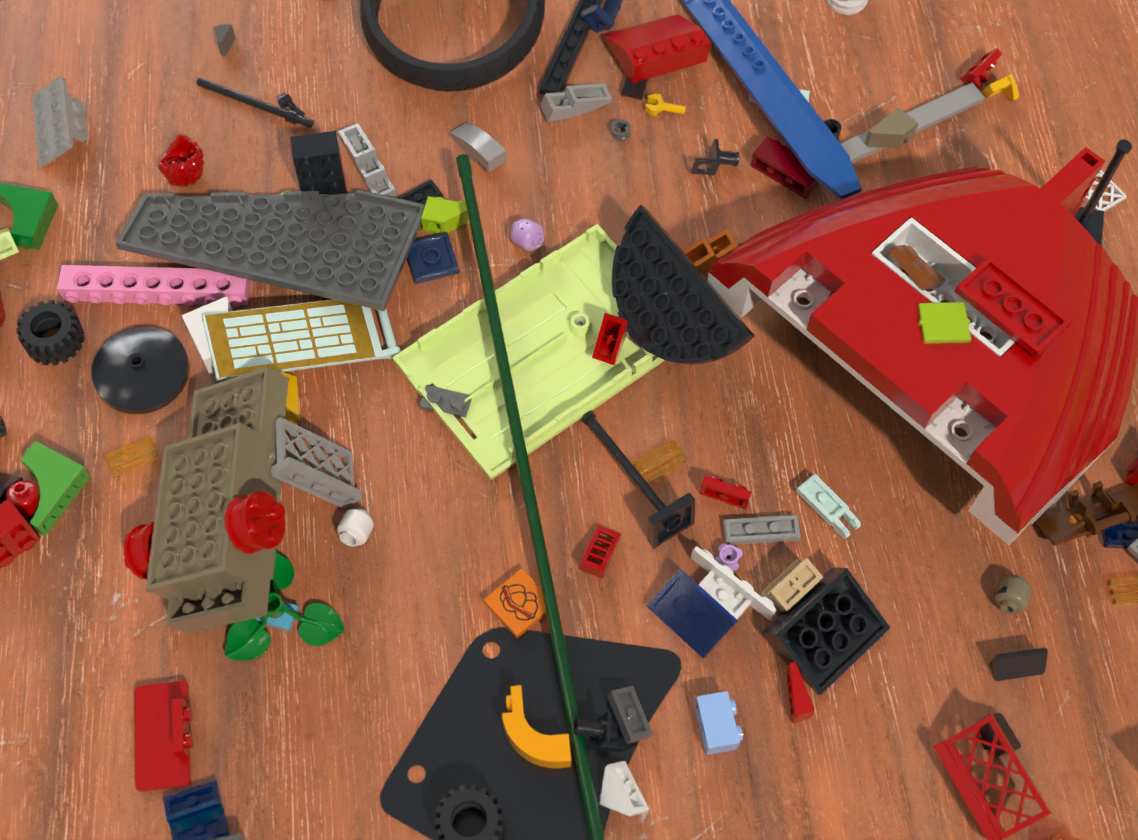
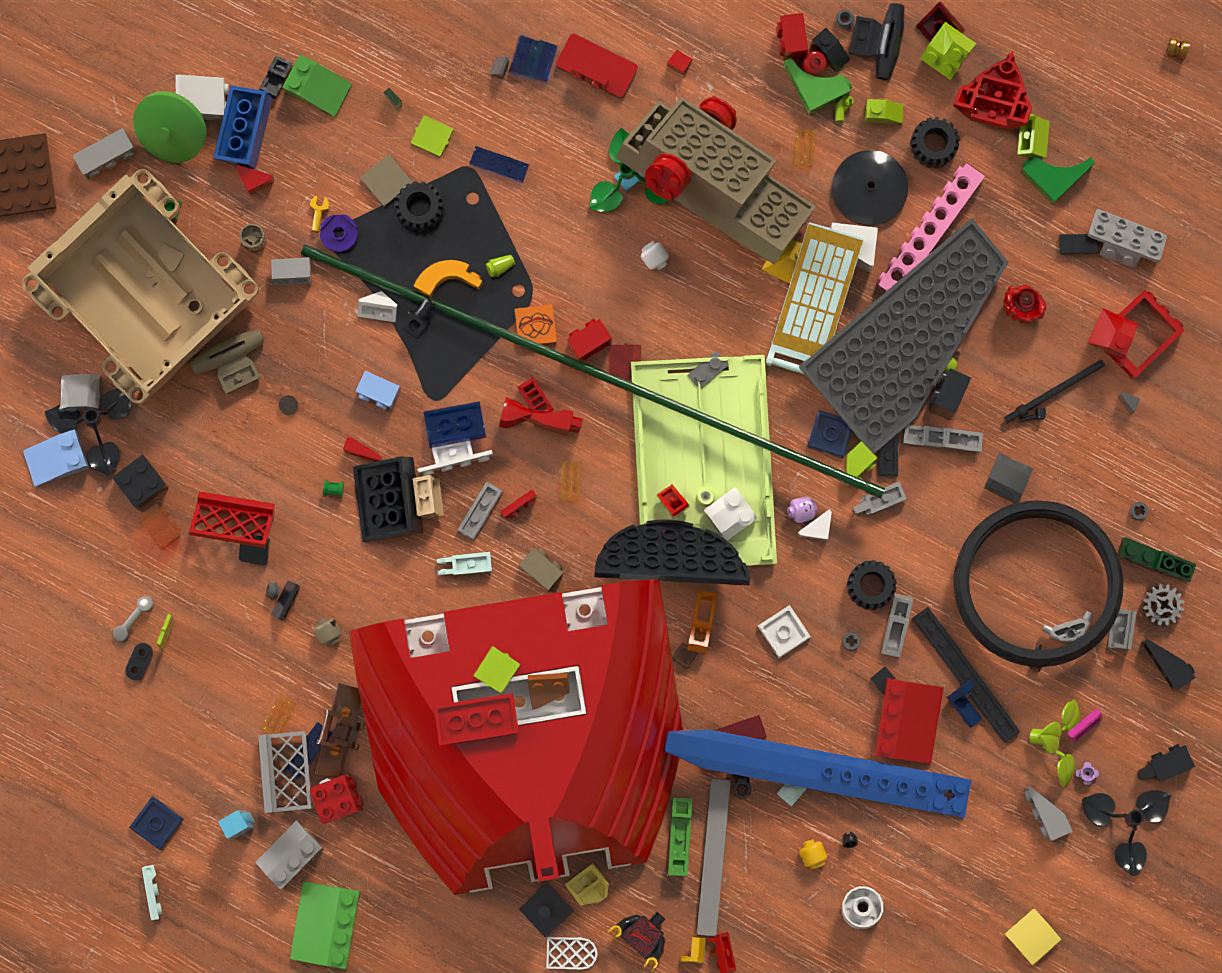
camera: 125 degrees right, 20 degrees up
(45, 405) = (883, 112): none -> lime slope
(63, 448) = (841, 106): none -> lime arm
(87, 160) = (1077, 244): none -> black tile
(104, 645) = (679, 62): none -> red slope
(144, 87) = (1125, 364): none -> red window
(163, 70) = (1113, 333): none -> red slope
(312, 478) = (695, 240): light grey fence -> none
(355, 769) = (499, 164): none -> clear blue tile
(367, 92) = (1008, 478): none -> dark grey slope
(479, 146) = (904, 526): light grey slope -> none
(479, 685) = (499, 265): none -> lime cone
(482, 185) = (870, 504): none -> light grey hinge
(493, 493) = (621, 359): none -> clear red piece
(498, 528) = (589, 340): none -> red brick
(535, 209) = (818, 528): none -> white slope
(555, 150) = (883, 573): none -> black tyre
(579, 287) = (730, 514): none -> white slope
(629, 714) = (418, 342): flat silver plate -> none
(635, 547) = (554, 421): none -> red hips
(656, 187) = (784, 631): none -> white tile
(660, 106) = (851, 689): yellow bar -> none
(669, 519) = (523, 451): black tile -> none
(716, 158) = (776, 692): black bracket -> none
(733, 552) = (481, 476): lavender plate -> none
(773, 428) = (541, 568): none -> dark tan brick
(797, 32) = (849, 840): none -> black hinge
(810, 817) = (288, 405): none -> clear smoke tile
(835, 50) = (813, 854): none -> yellow head
(862, 696) = (333, 489): none -> green bush
(892, 131) = (709, 833): dark tan slope -> none
(918, 158) = (680, 837): none -> bright green slope
(1021, 685) = (272, 590): none -> dark grey plate
(1028, 132) = (643, 936): none -> black torso

